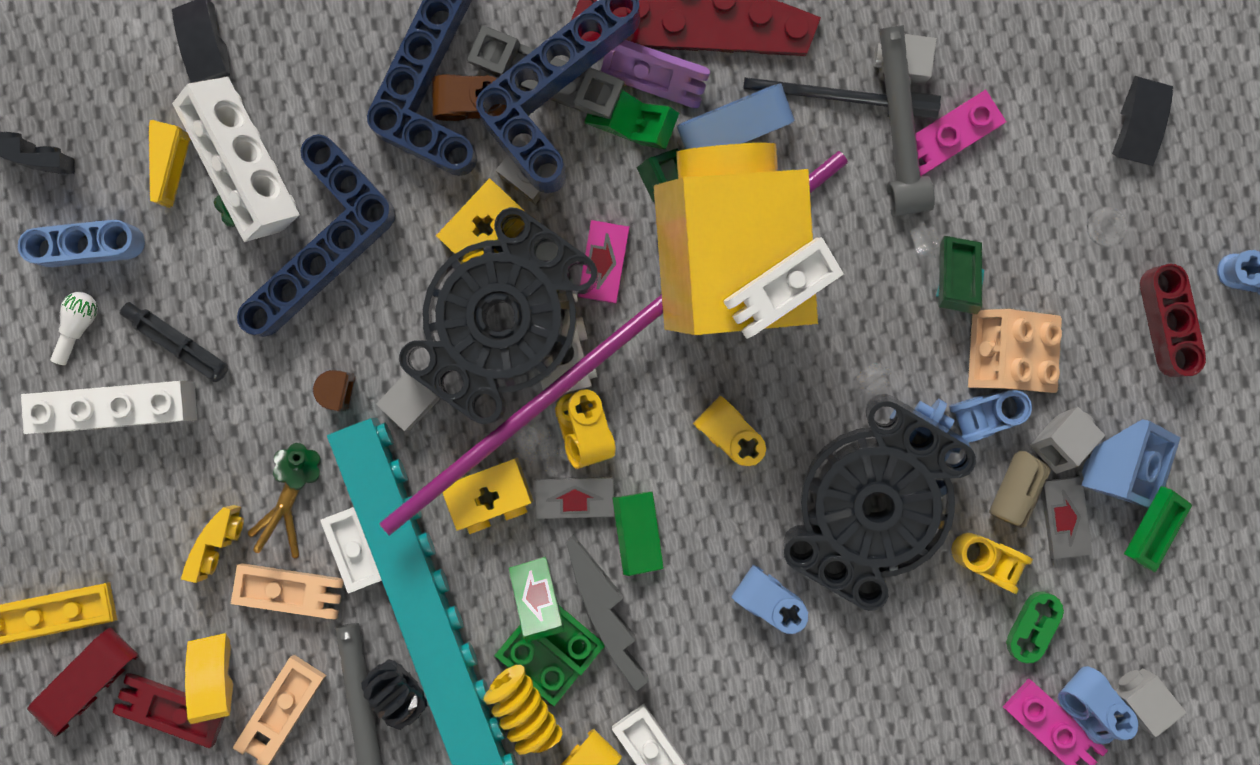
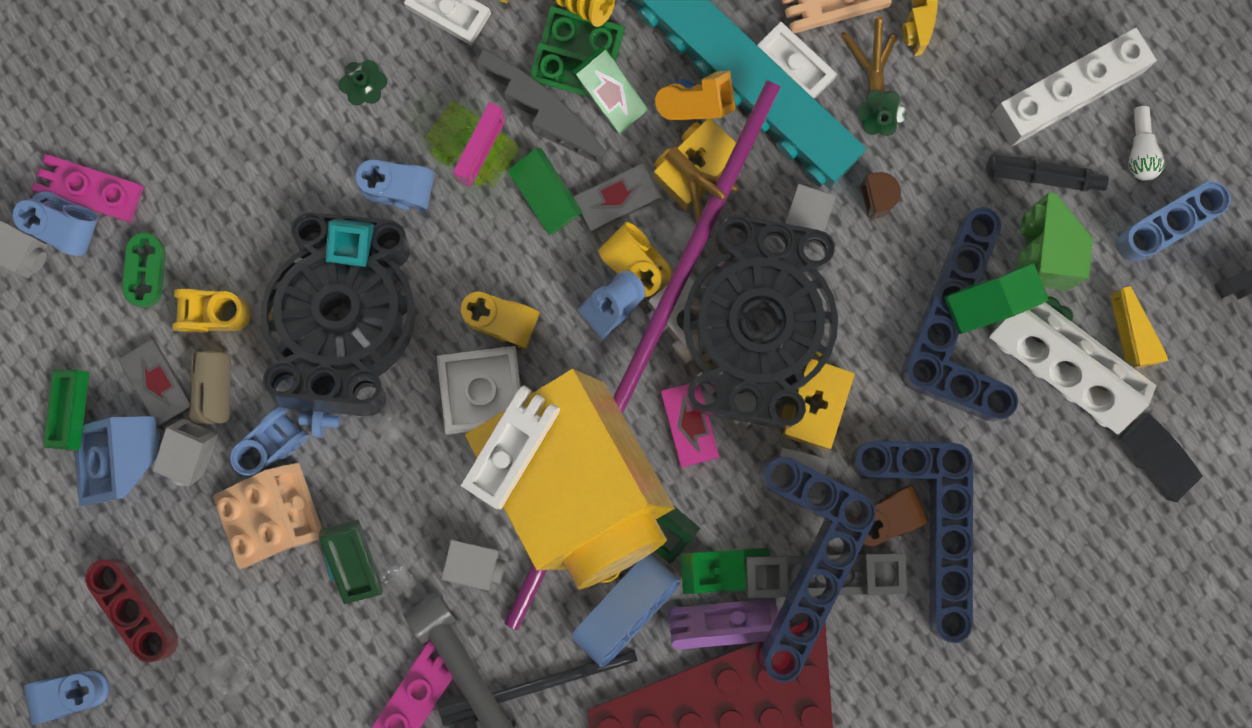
camera: 160 degrees right, 5 degrees down
(200, 268) = (1055, 244): none -> bright green slope
(276, 237) = (996, 299): none -> green slope
(459, 551) = (697, 101): none -> light orange leg
(497, 479) = (693, 175): none -> pearl gold plant
(623, 399) = (613, 303): none -> medium blue piece
(680, 598) = (479, 145): none -> dark pink tile
(692, 629) = (456, 128): none -> clear neon green brick
(755, 705) = (366, 90): none -> dark green plant
(777, 377) = (476, 386): none -> white plate
(839, 563) = (348, 242): none -> teal slope
(853, 222) = (473, 565): none -> light grey brick

